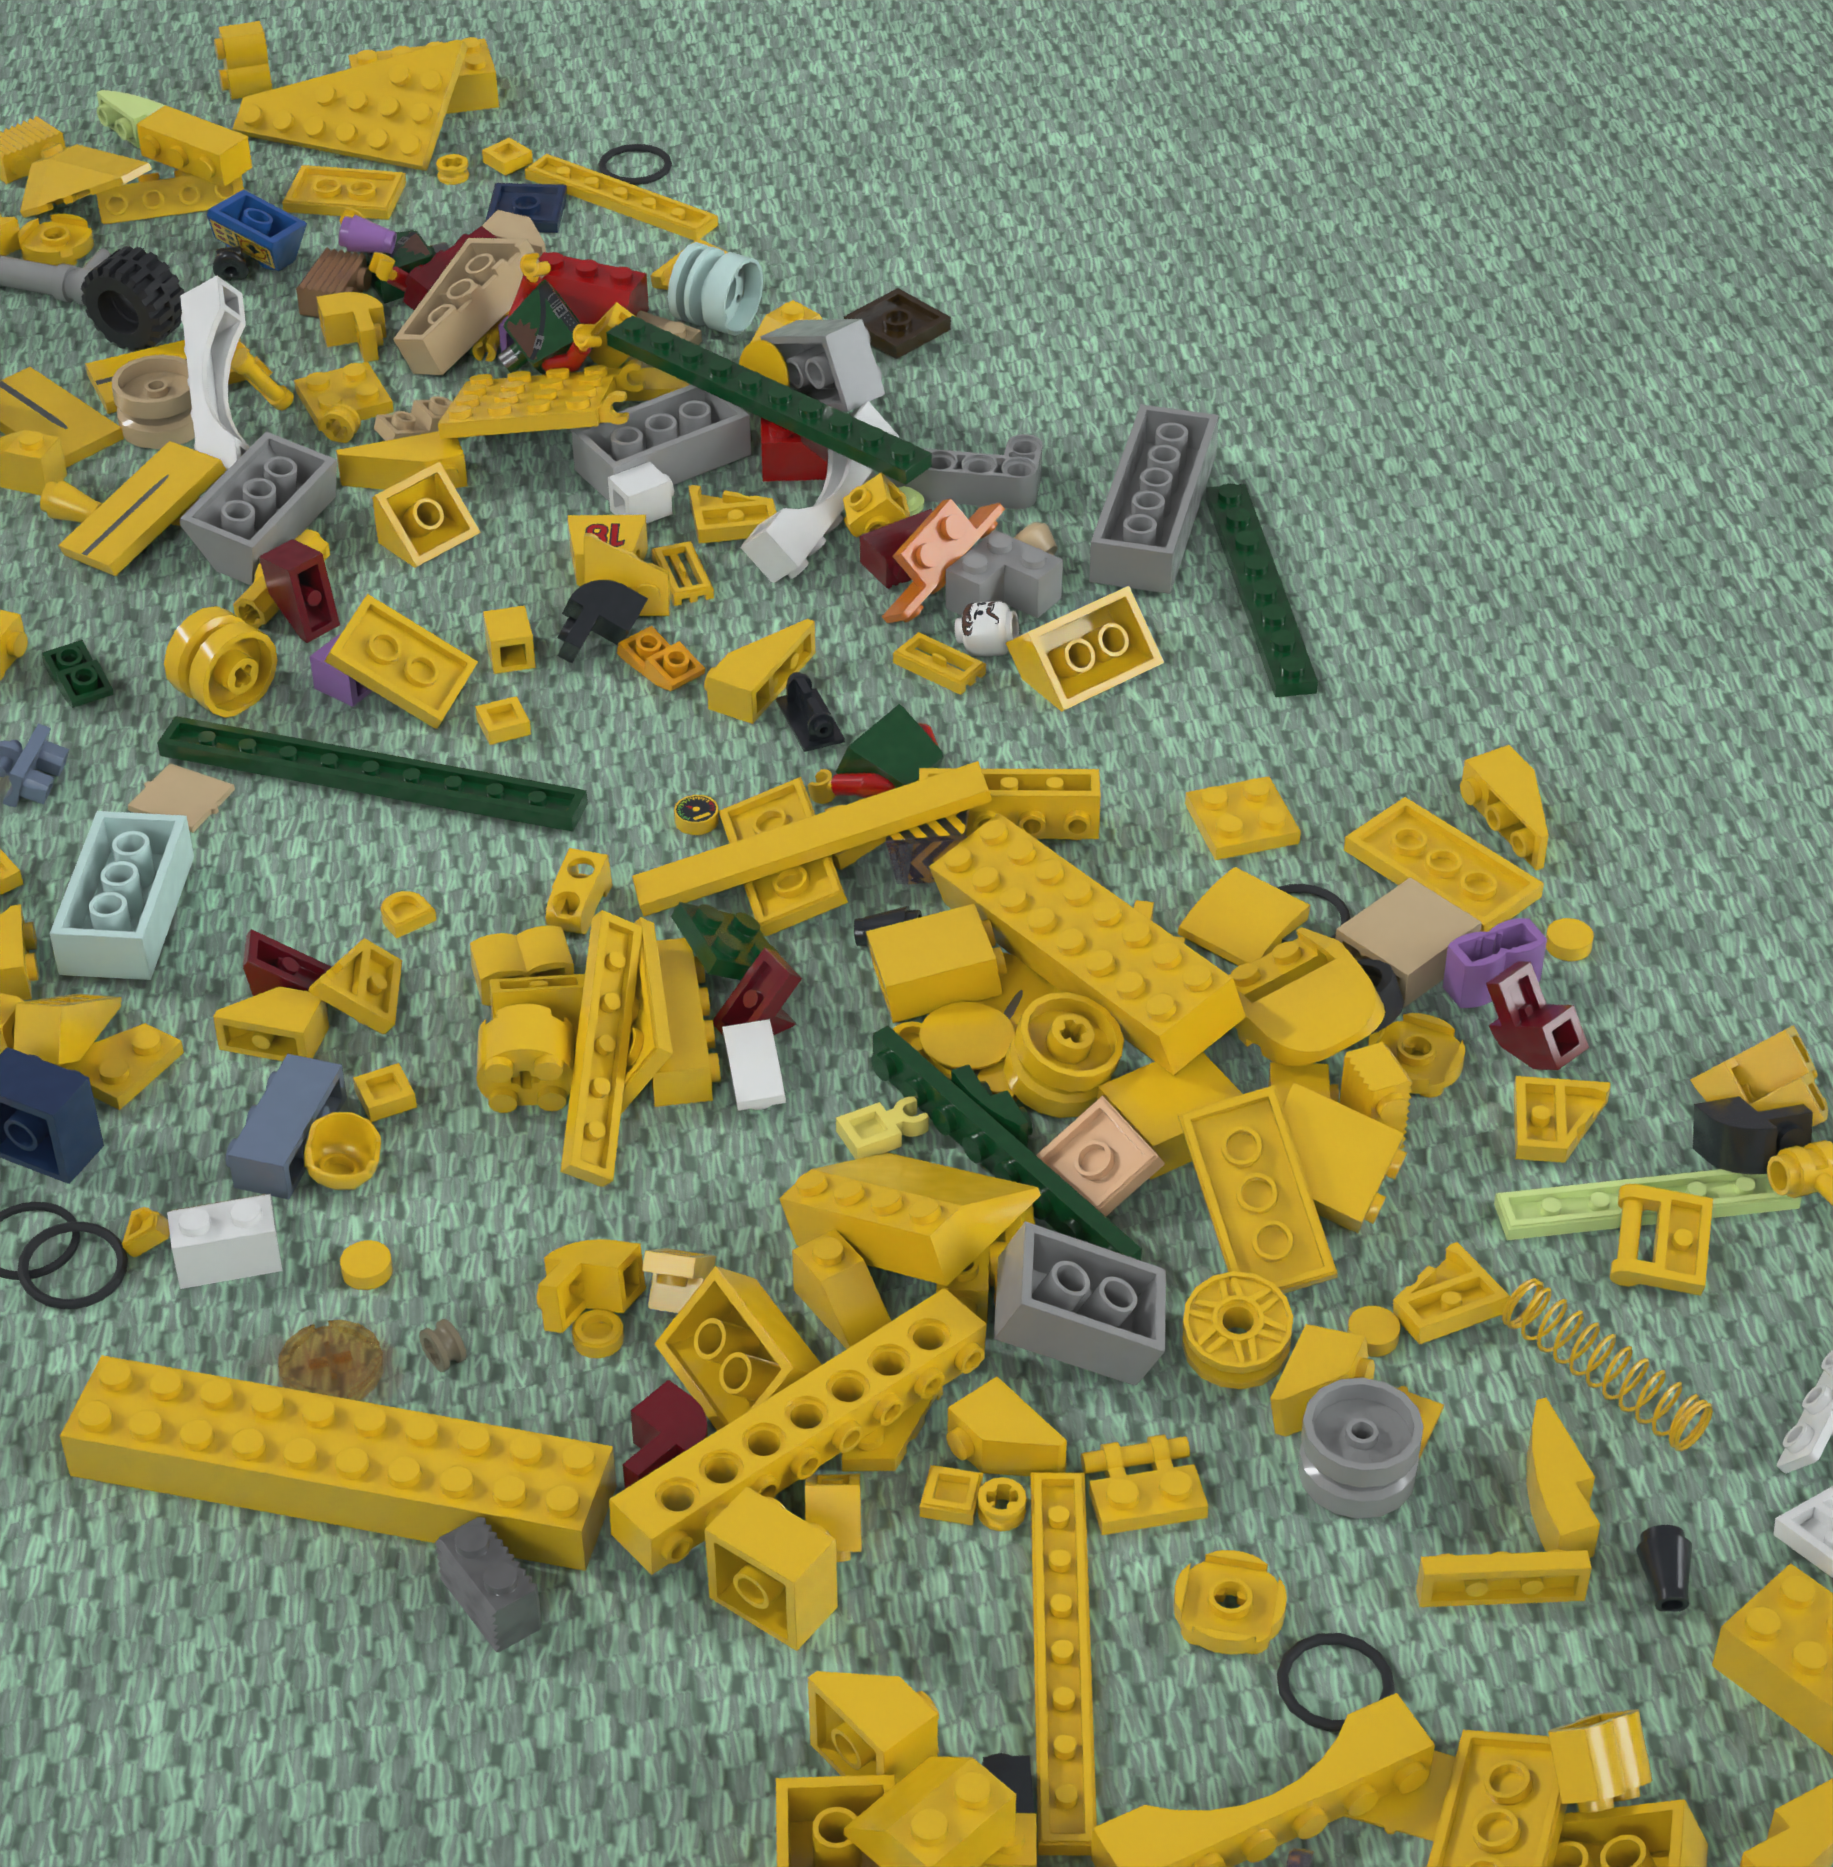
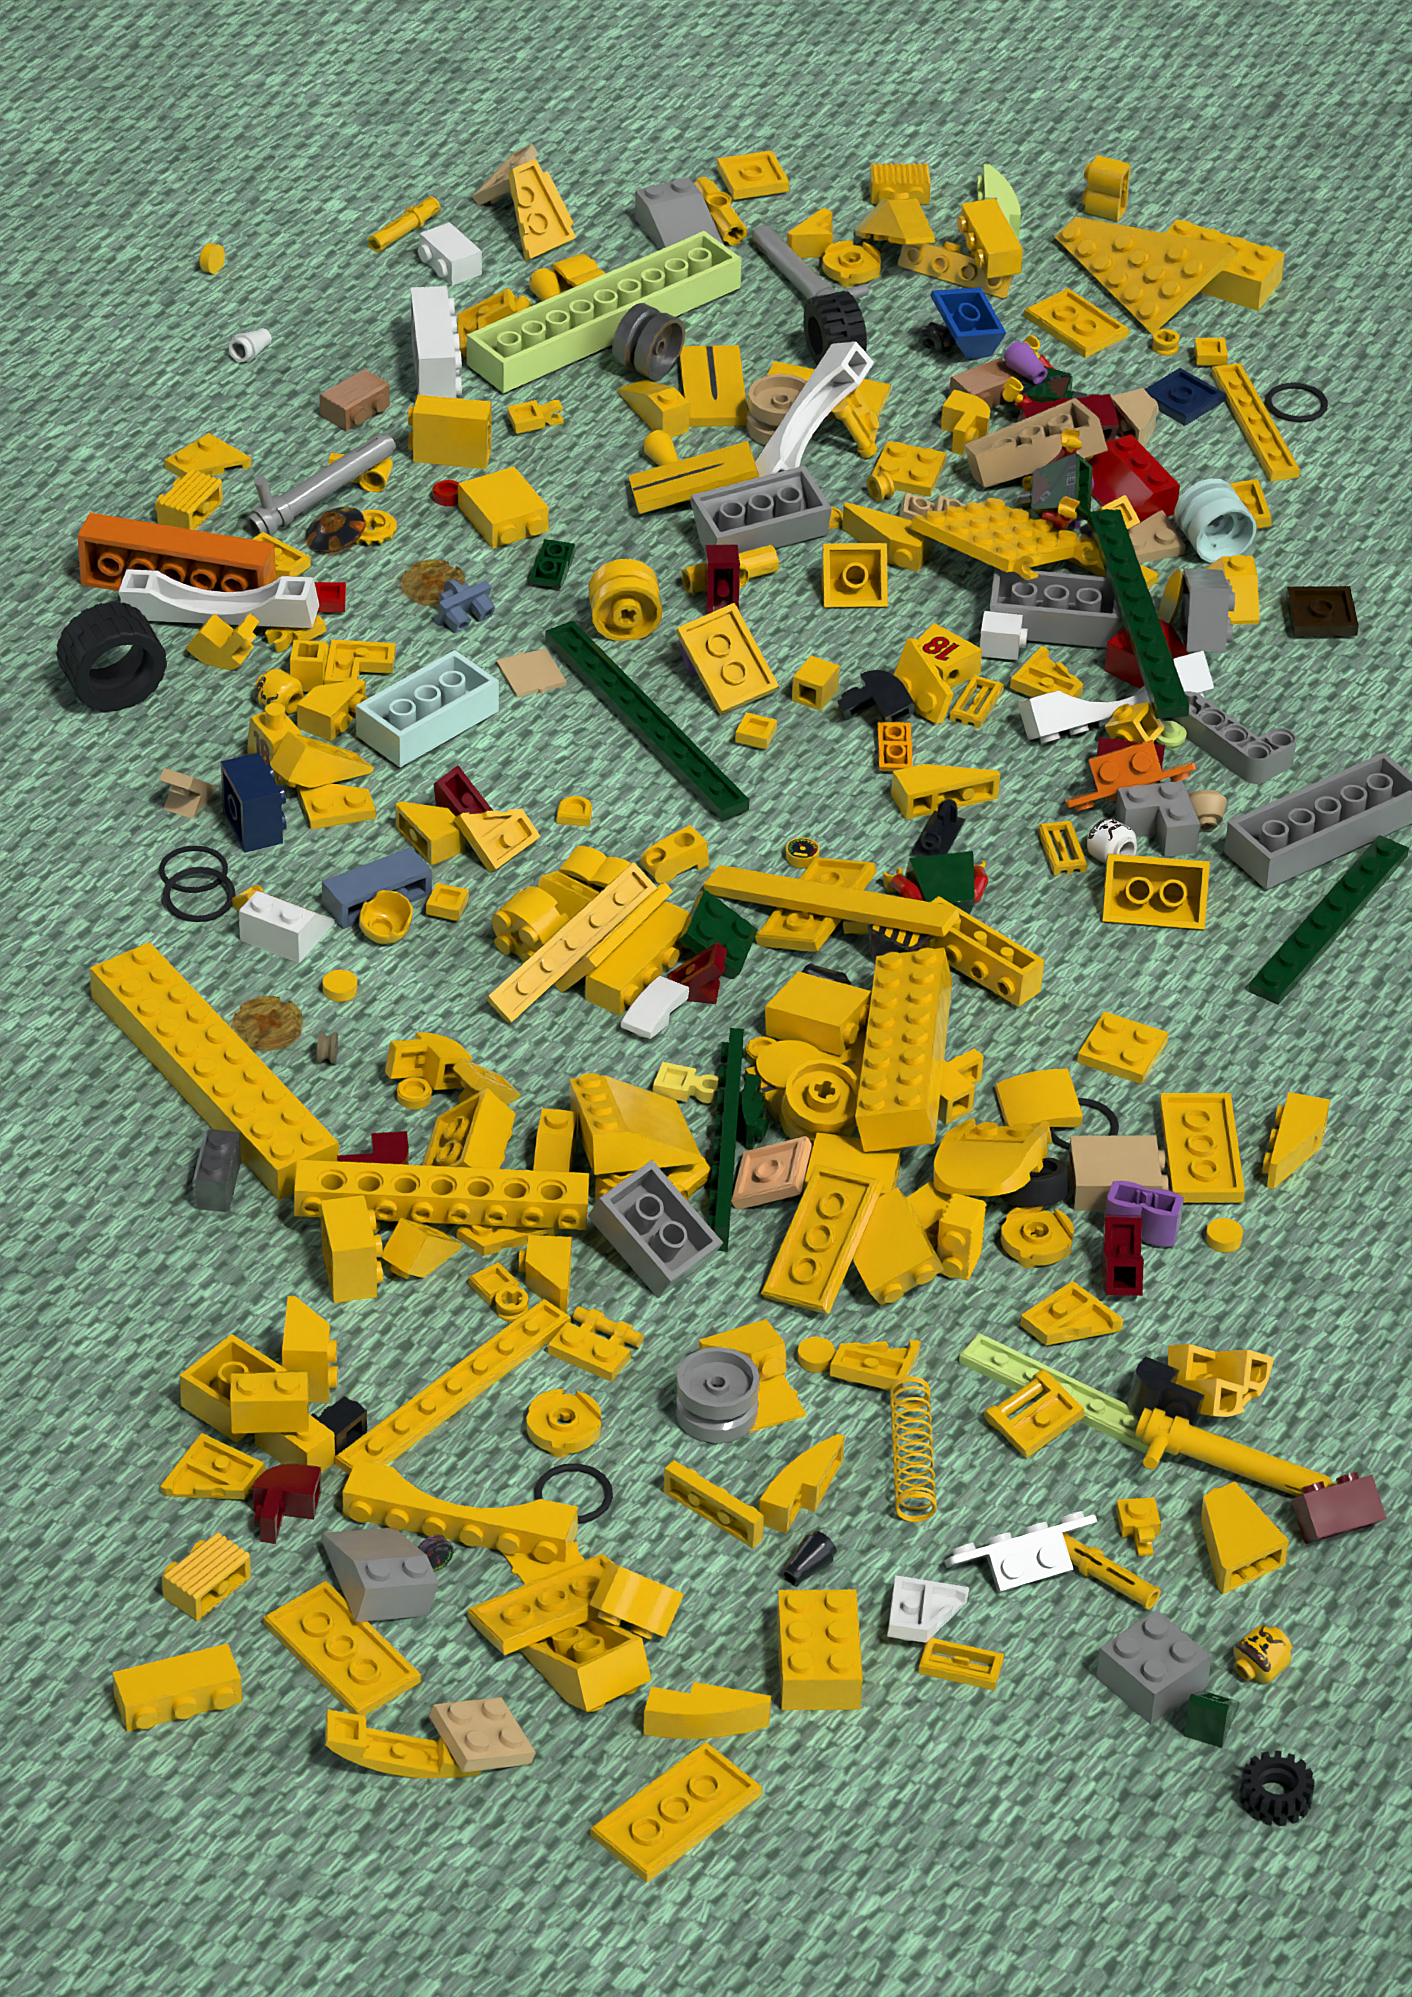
camera: 40 degrees right, 0 degrees up
(1240, 1302) = (732, 1297): yellow wheel -> none

